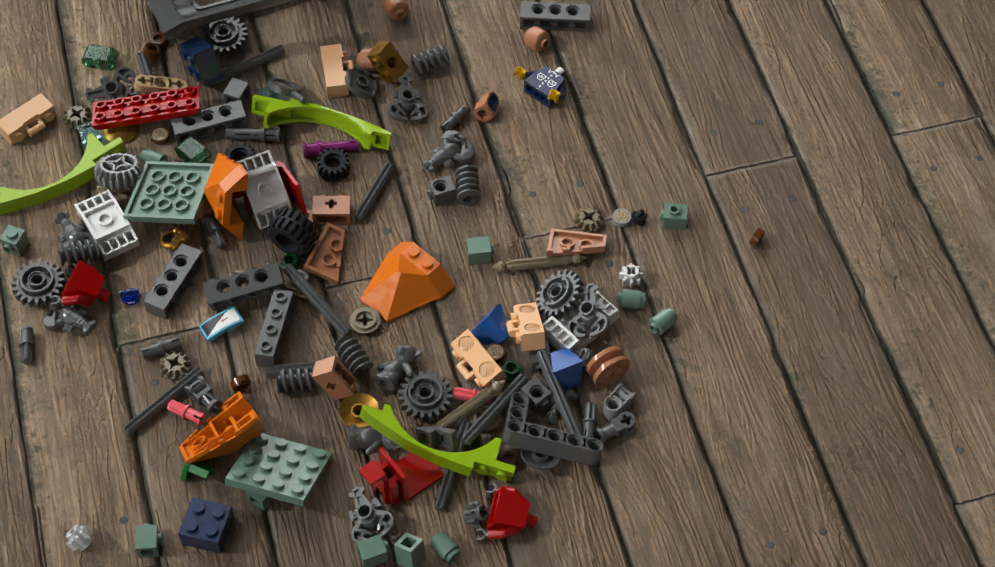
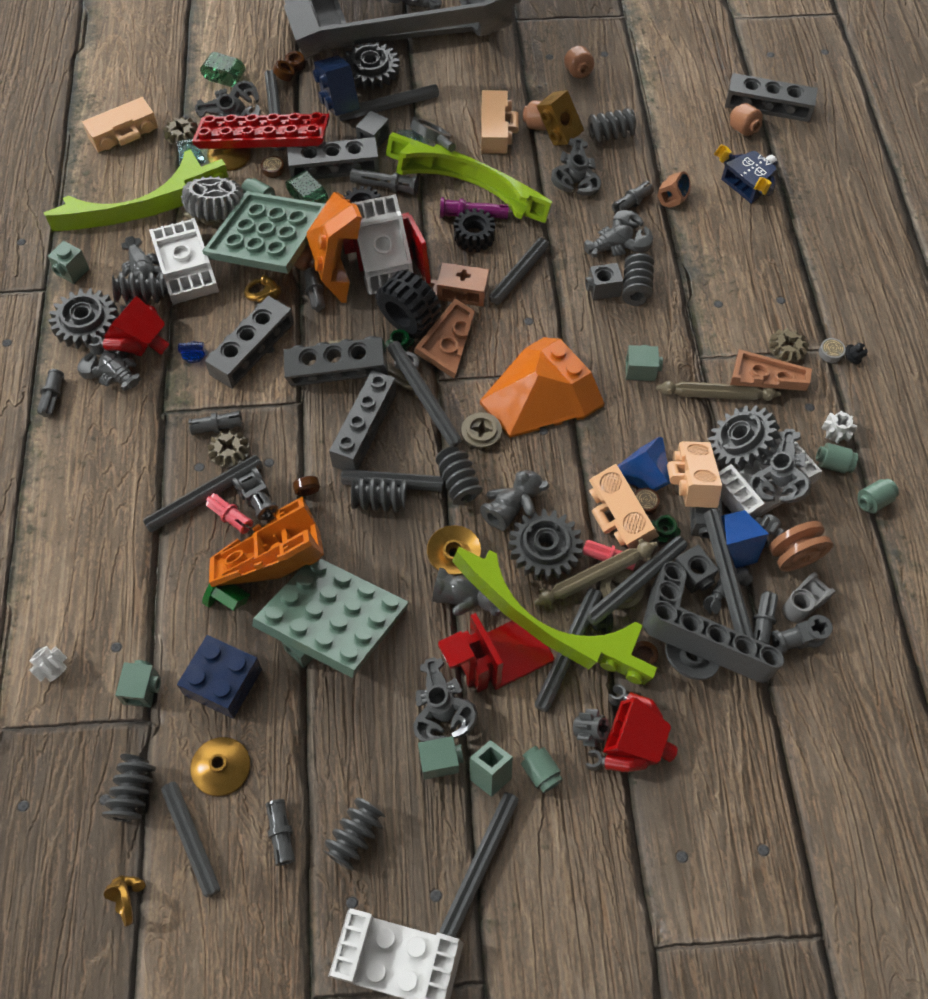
camera: 10 degrees right, 5 degrees up
(148, 79) = (264, 103): tan beam -> none
(224, 321) = (297, 403): slope -> none
(334, 377) = (428, 500): nougat brick -> none
(361, 83) = (524, 139): dark grey tile -> none
(437, 437) = (550, 605): dark grey slope -> none
(674, 216) = (903, 359): sand green brick -> none

